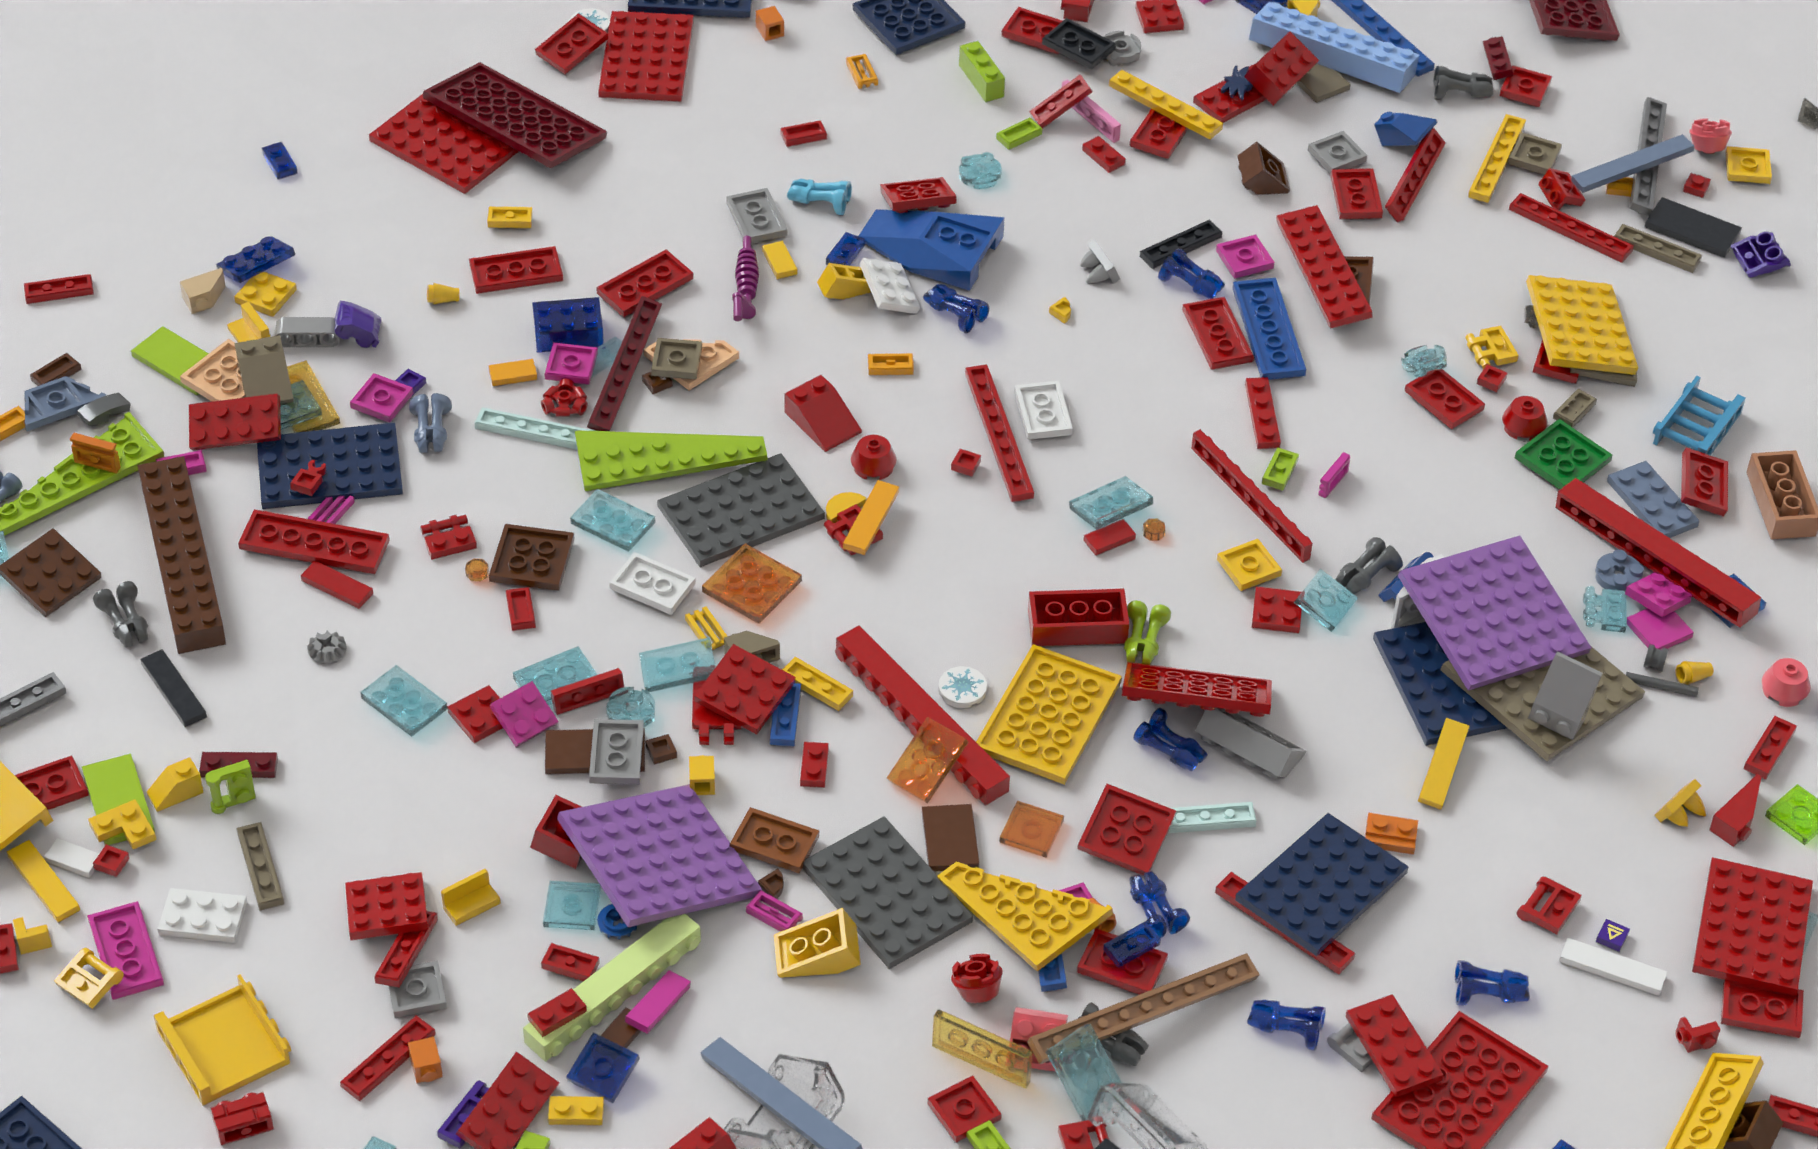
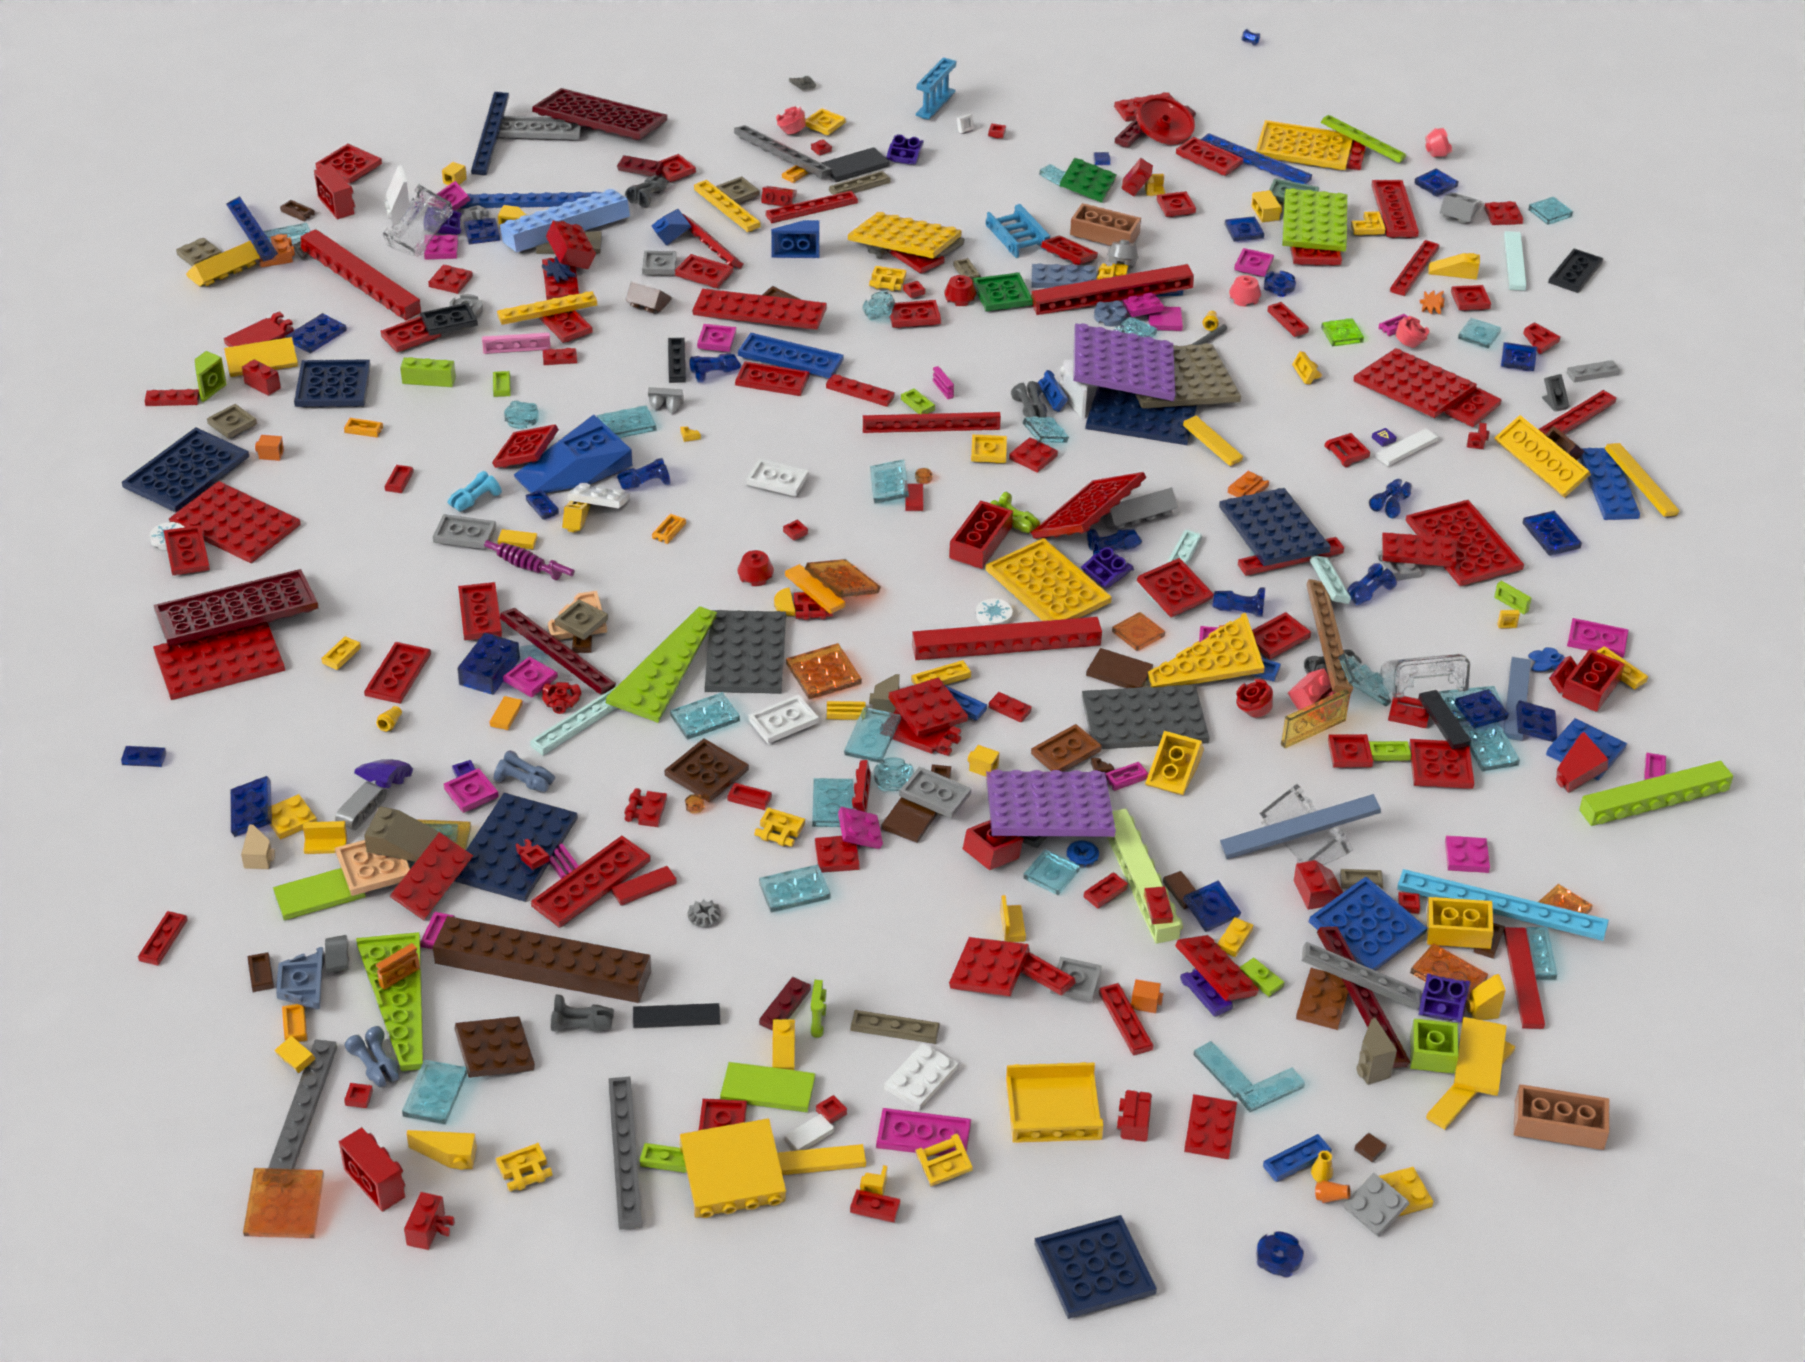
camera: 60 degrees left, 5 degrees down
(123, 819) = (800, 1083): yellow plate -> none
(493, 650) = (781, 822): none -> yellow plate
(657, 1001) = (1171, 858): dark pink tile -> none
(821, 413) = (691, 576): red slope -> none
(905, 531) = (842, 578): none -> clear orange plate
(927, 760) = (1056, 647): clear orange plate -> none
(999, 433) = (780, 504): red plate -> none
(1037, 254) = (629, 421): none -> clear light blue plate
(1061, 101) = (500, 347): red plate -> none
(1118, 755) = (1106, 567): none -> dark purple slope
(1131, 944) = (1274, 620): clear blue plate -> none
(1267, 976) = (1330, 579): none -> light aqua tile
(1476, 239) = (796, 240): none -> blue slope
(1565, 695) = (1219, 360): light grey slope -> none
(1632, 163) = (790, 156): sand blue tile -> none
(1655, 657) = (1190, 328): dark grey wheel -> none
(1704, 545) = (1110, 271): none -> yellow plate
(1735, 817) = (1329, 350): red slope -> none
(1740, 532) = (1123, 253): none -> light grey cone

